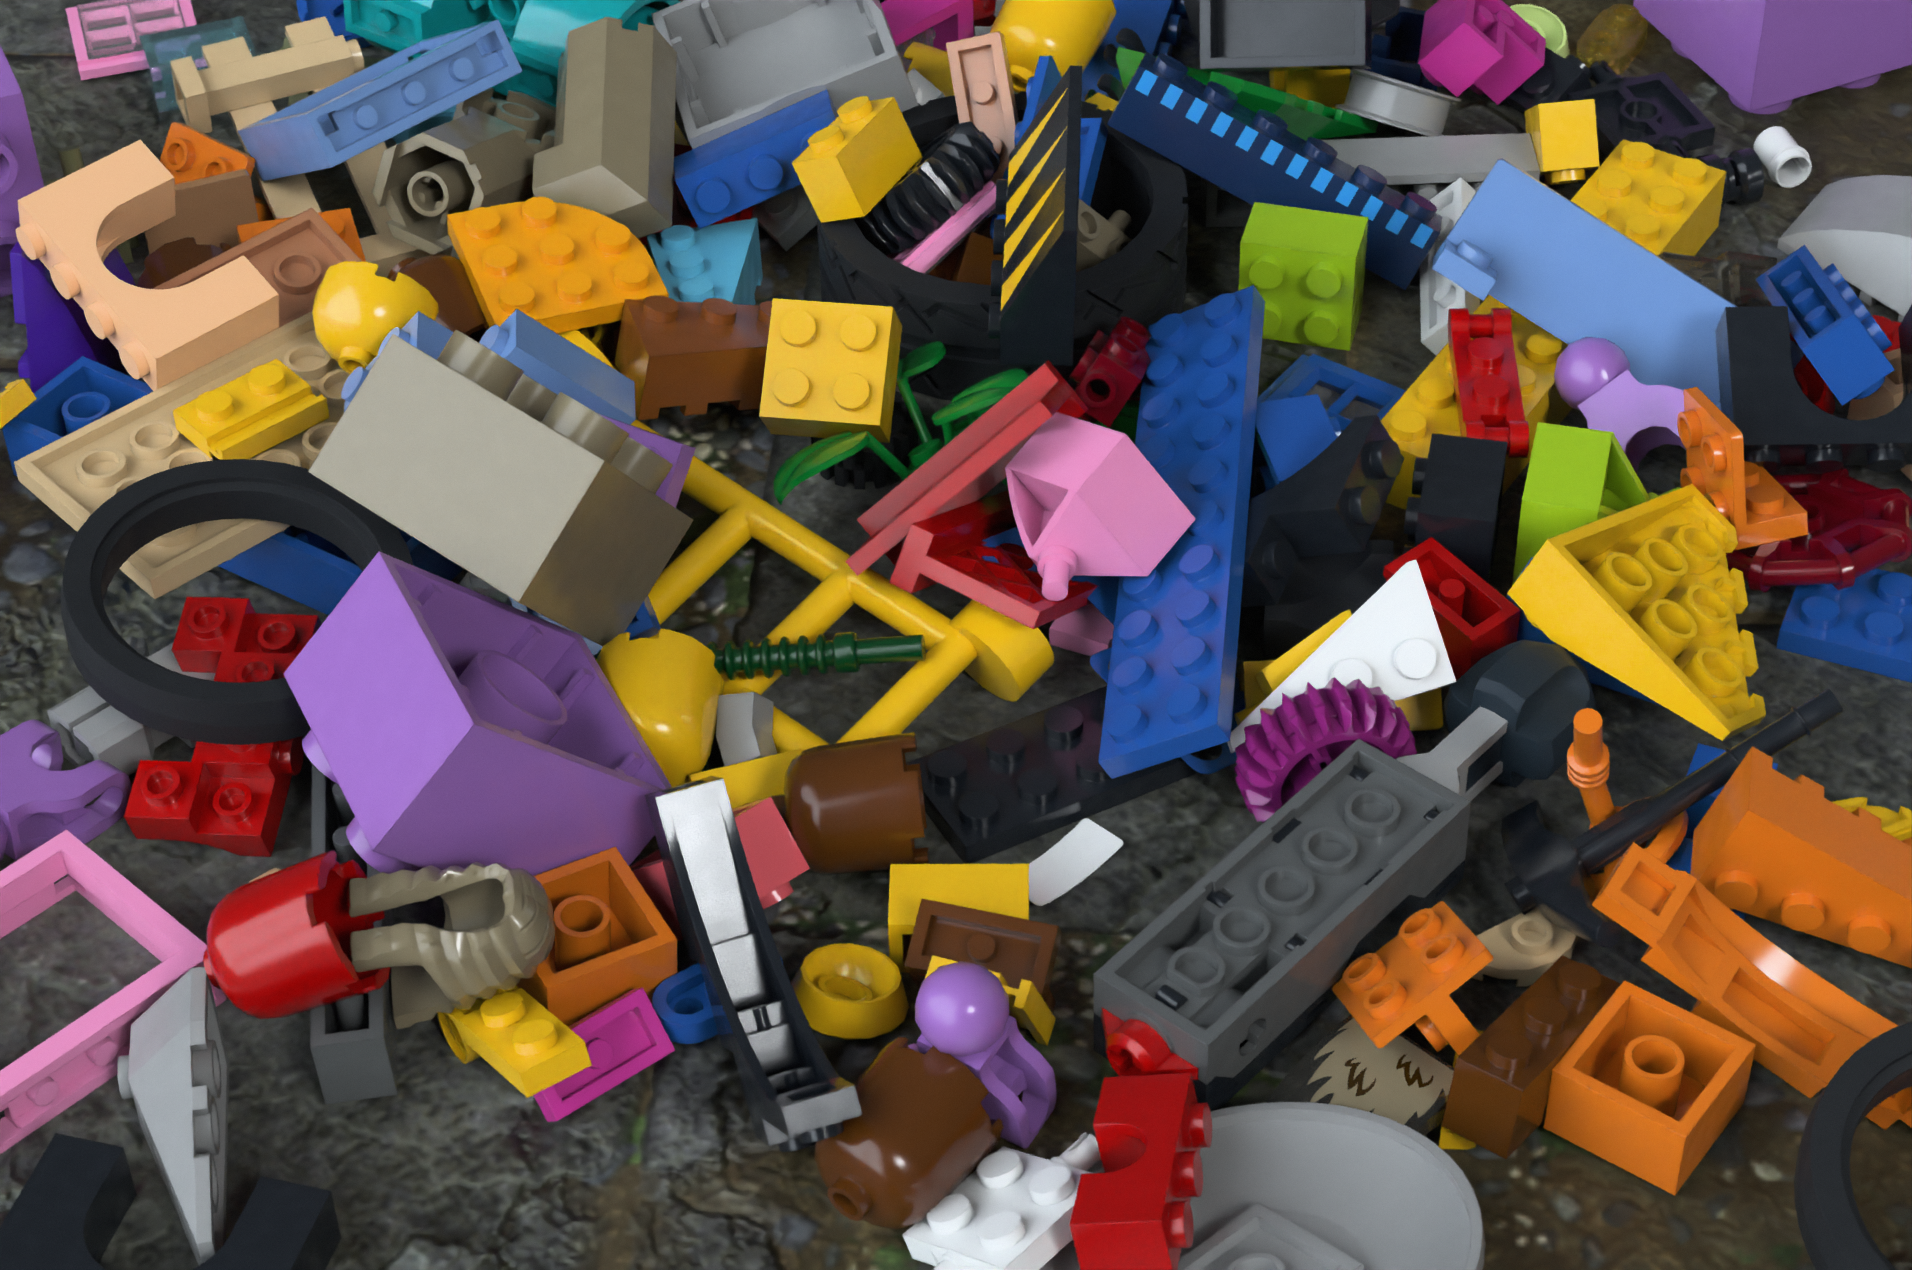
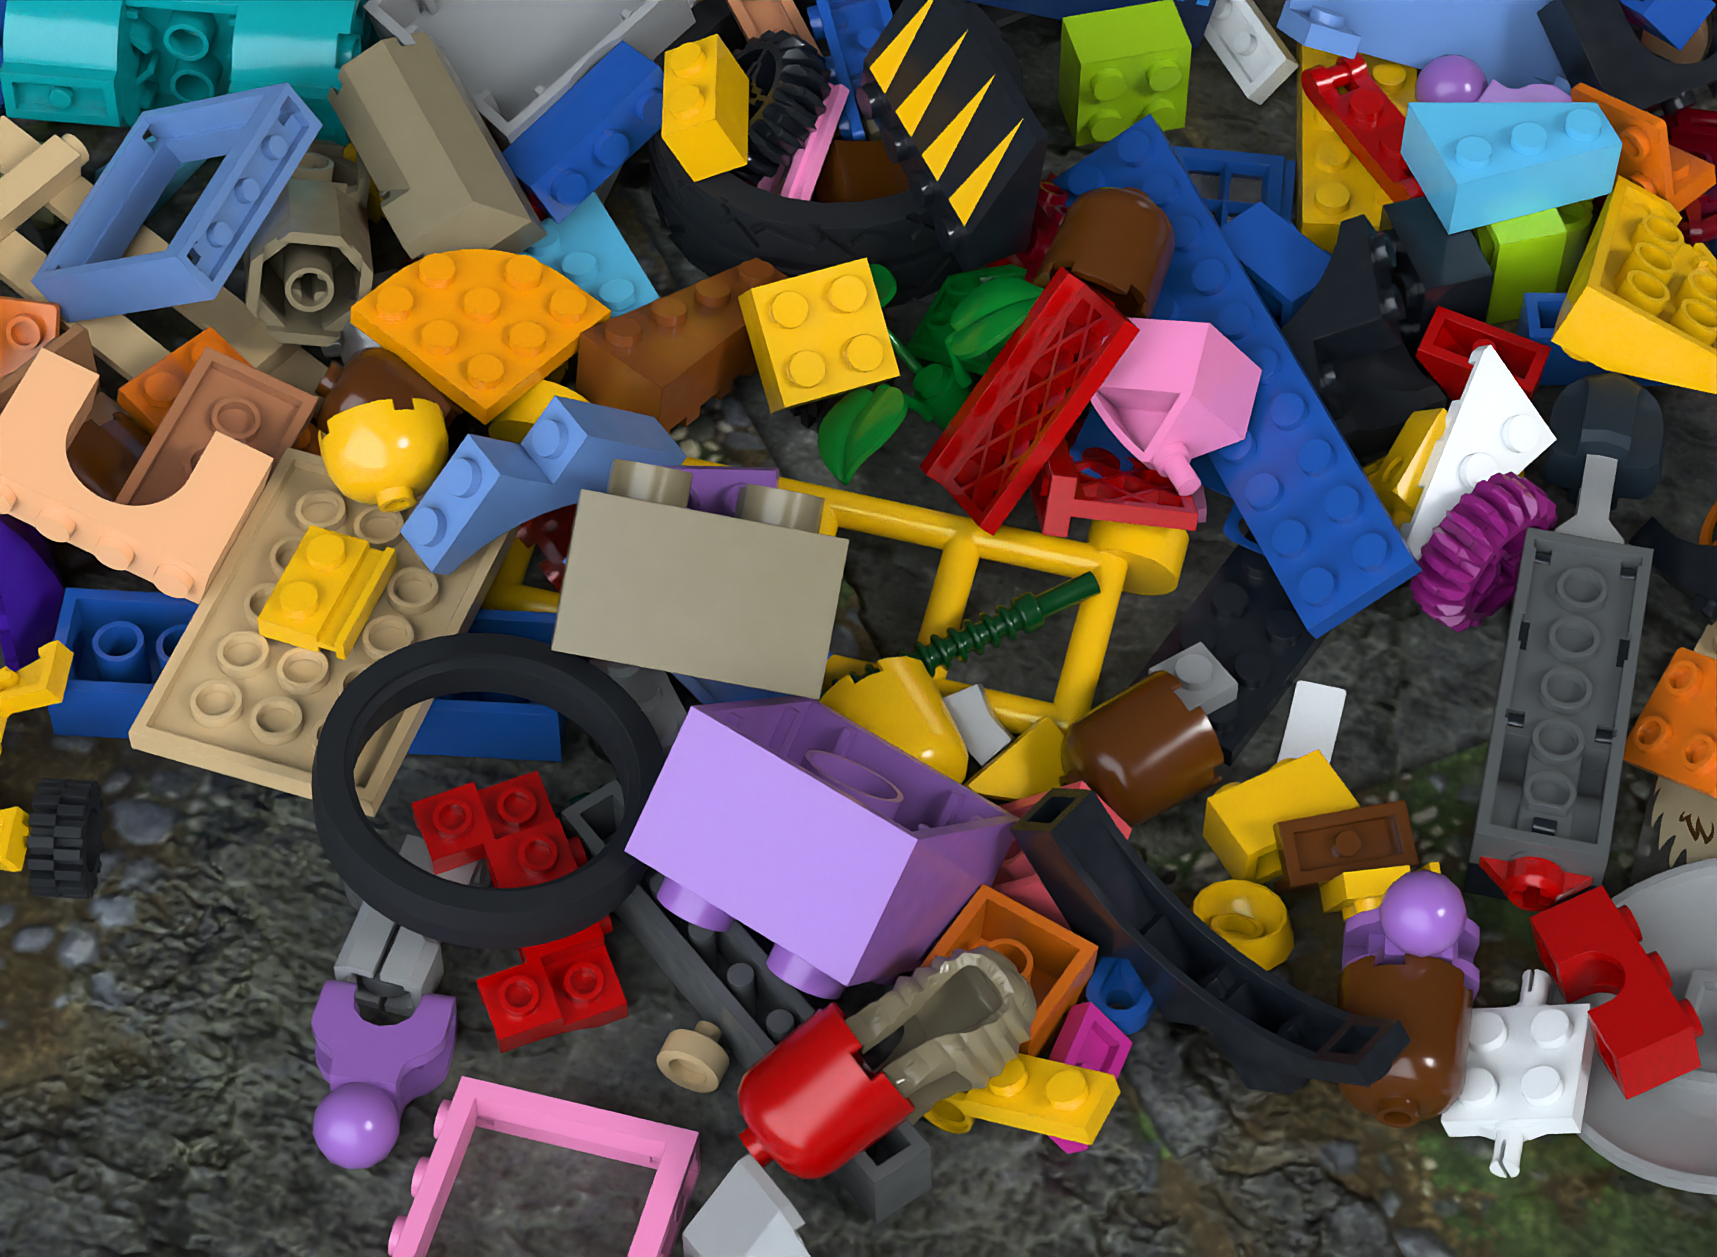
camera: 30 degrees left, 10 degrees up
(962, 771) = (1202, 677): none -> light grey plate
(1125, 371) = (1116, 245): none -> reddish brown cylinder
(1574, 424) = (1508, 157): none -> medium azure wedge

